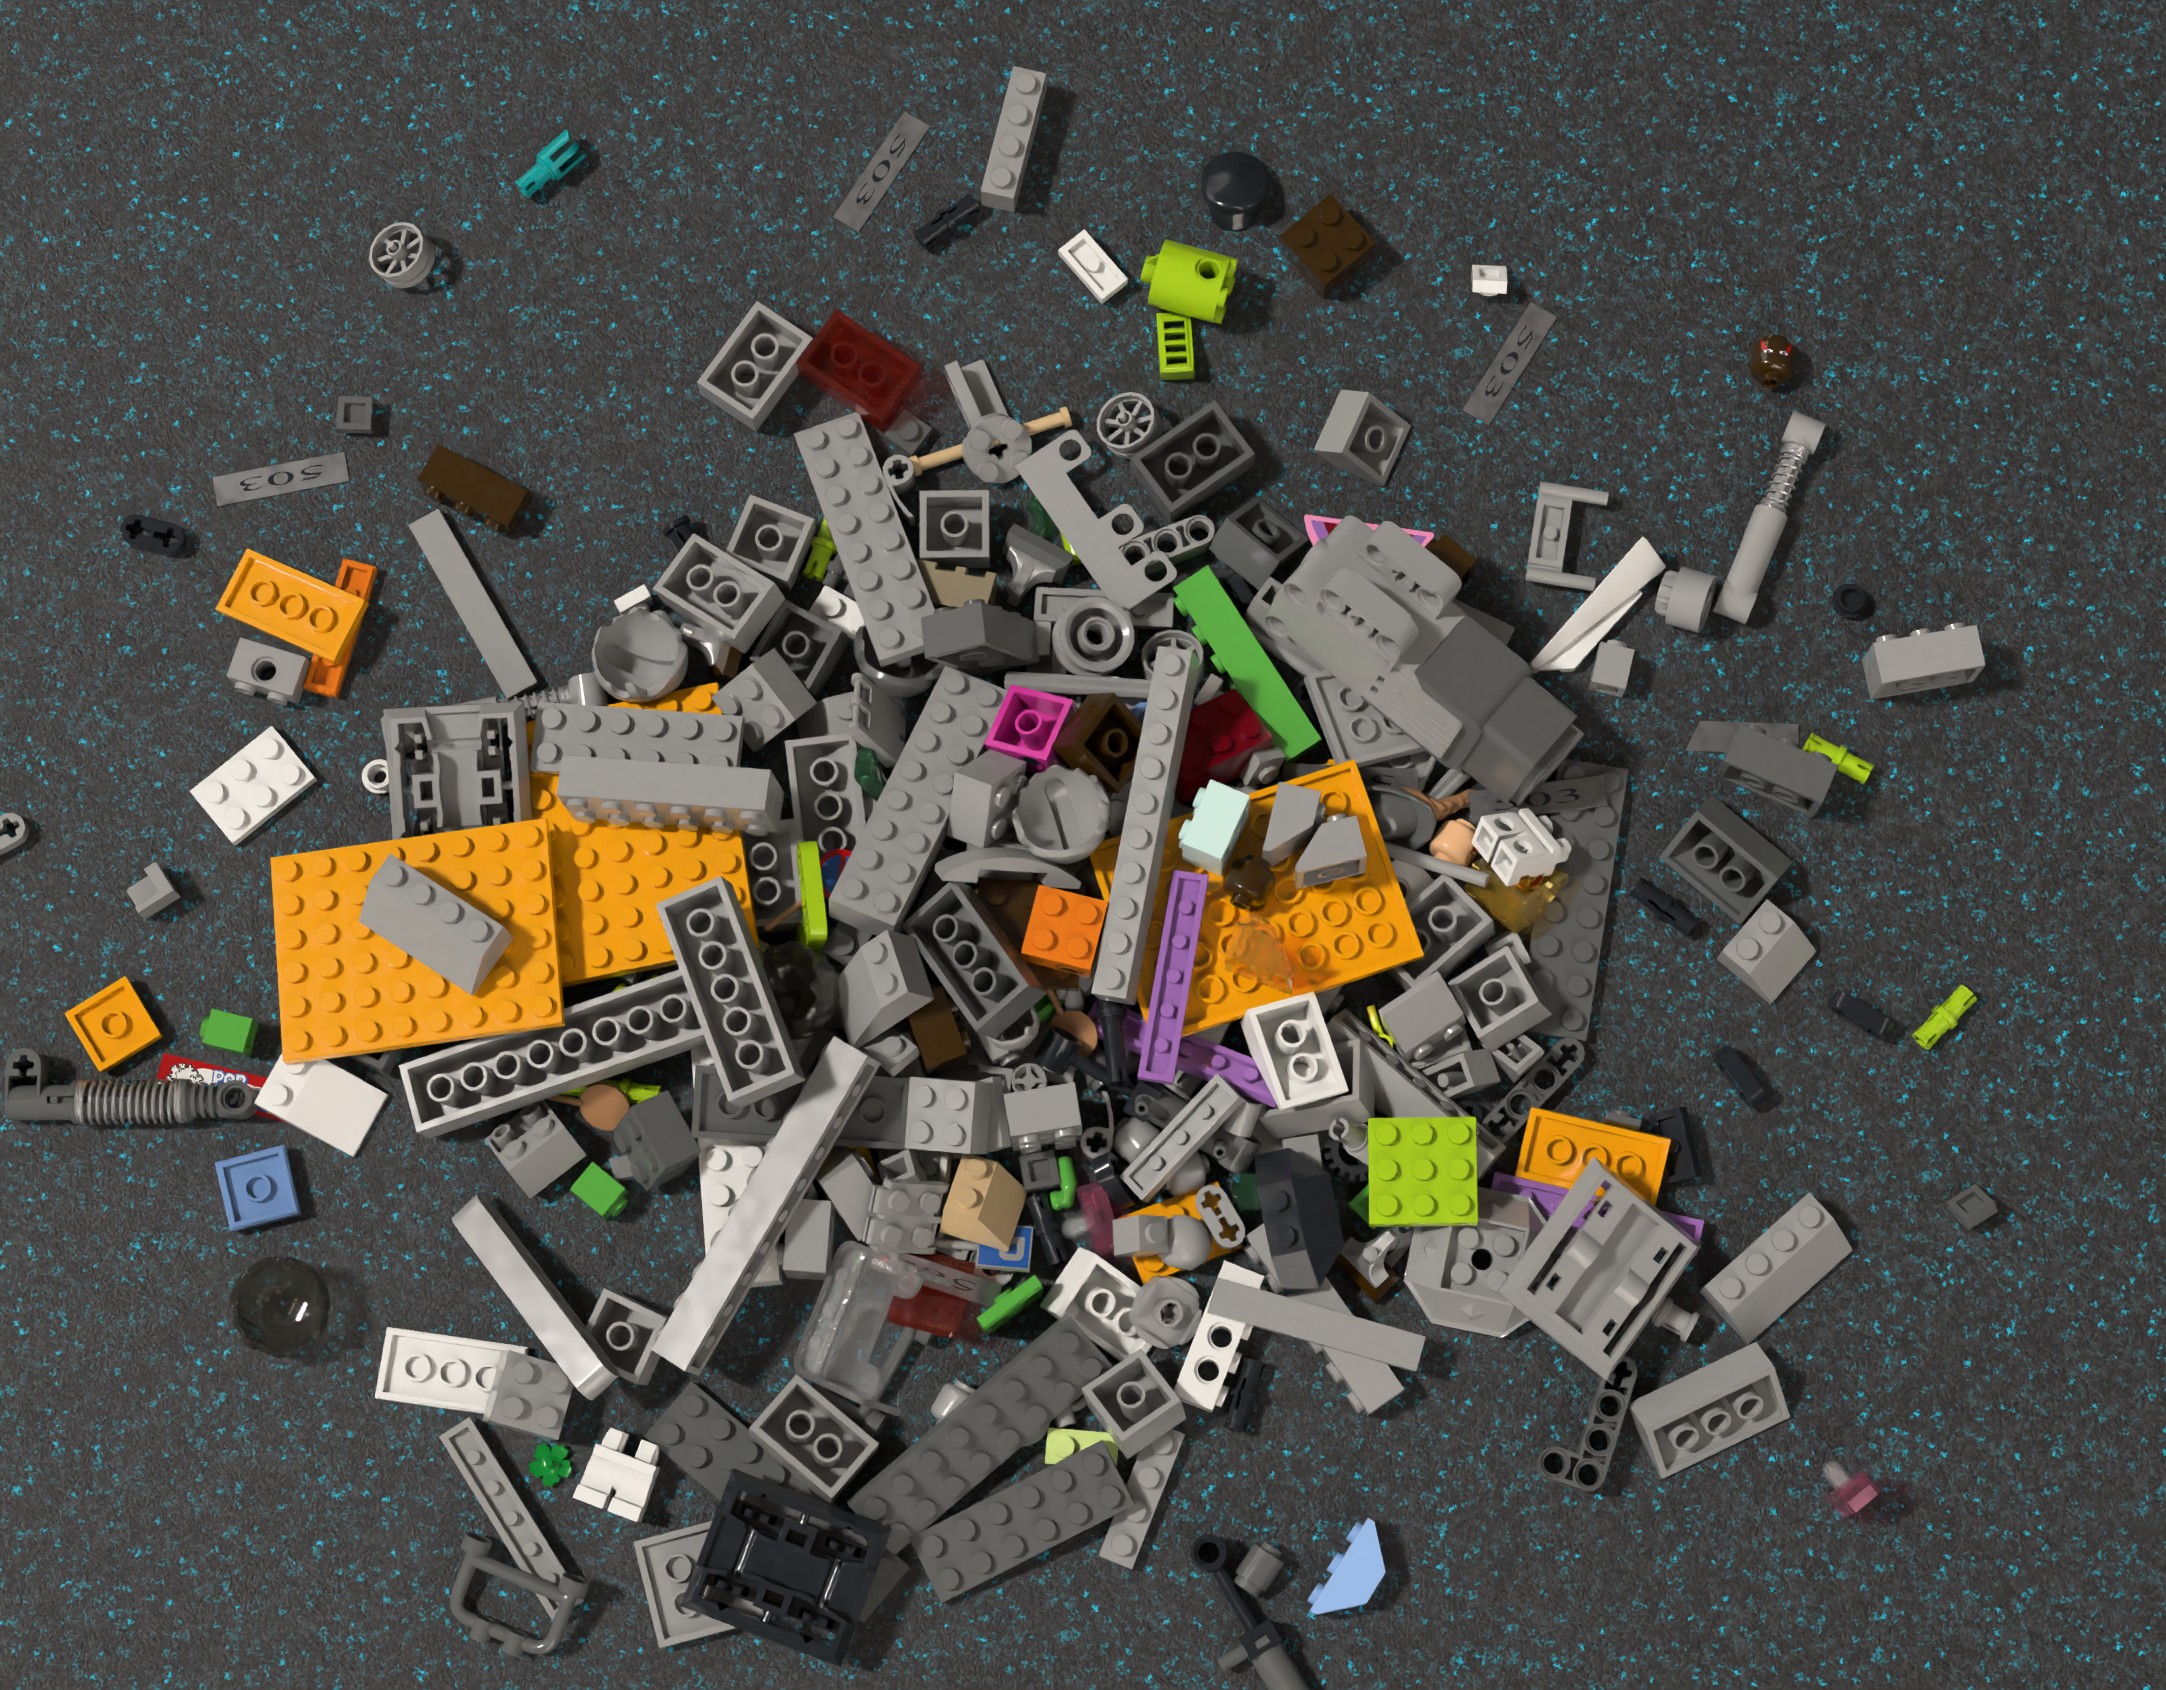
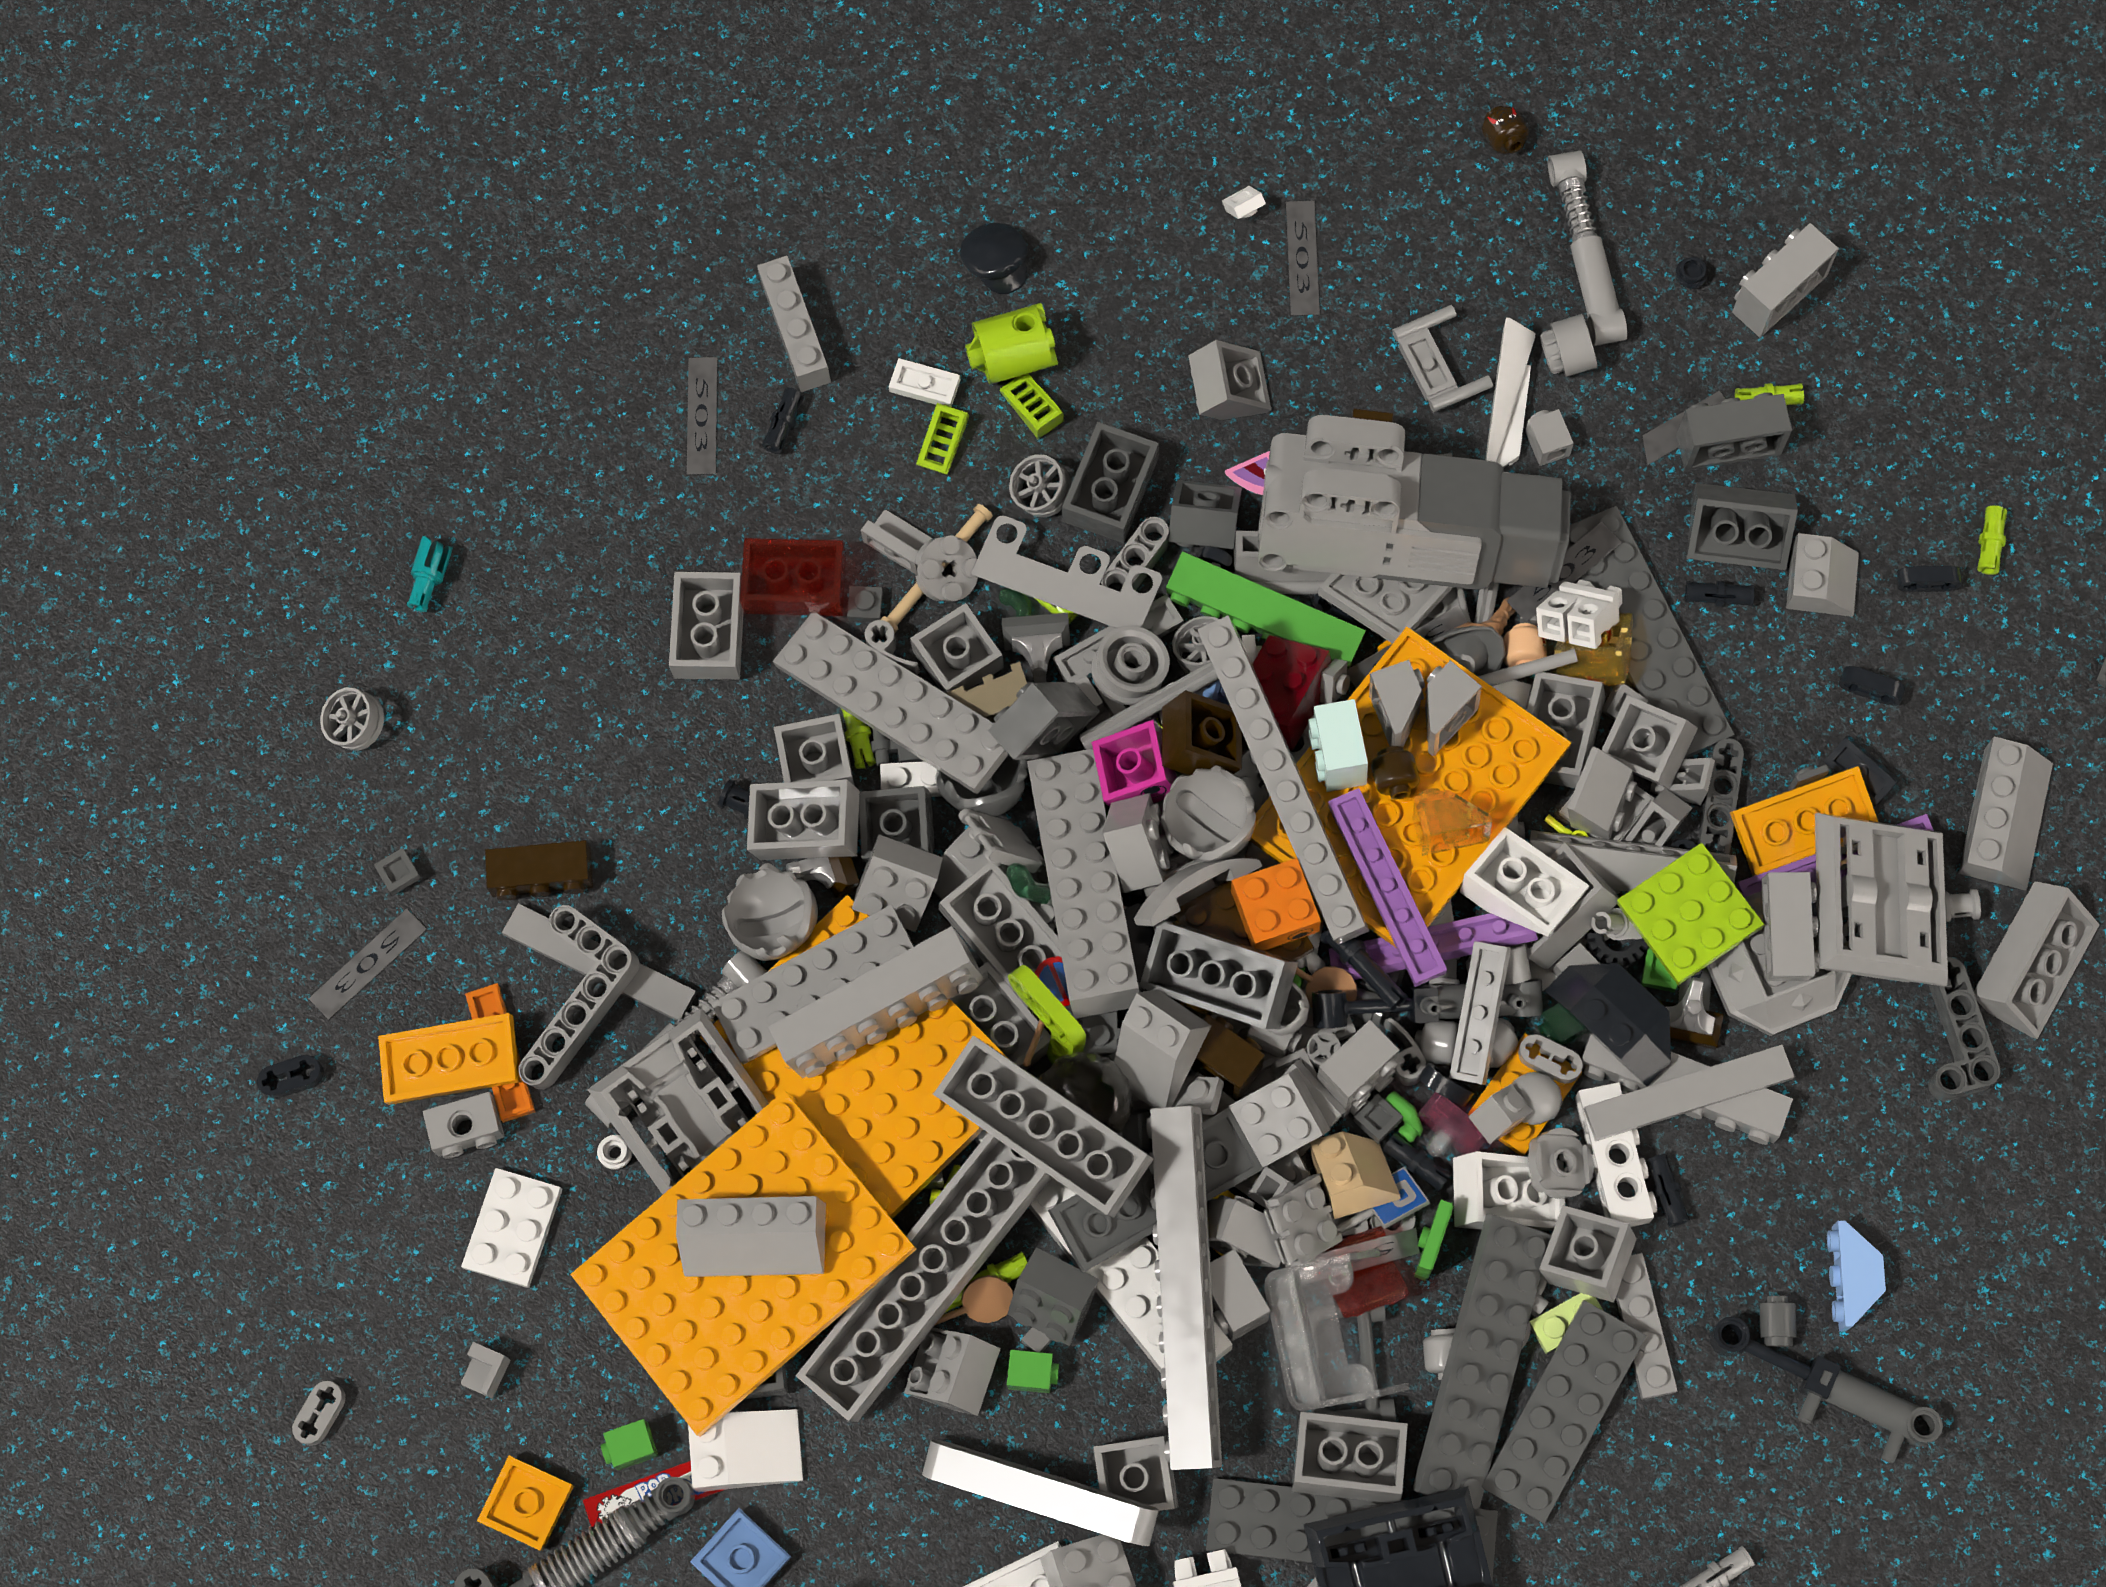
camera: 30 degrees left, 5 degrees down
(436, 626) = (581, 998): none -> light grey beam
(637, 598) = (735, 868): white plate -> none
(1077, 309) = (951, 414): none -> lime slope
(1326, 246) = (1099, 254): dark brown brick -> none
(1498, 1239) = (1789, 926): none -> light grey brick

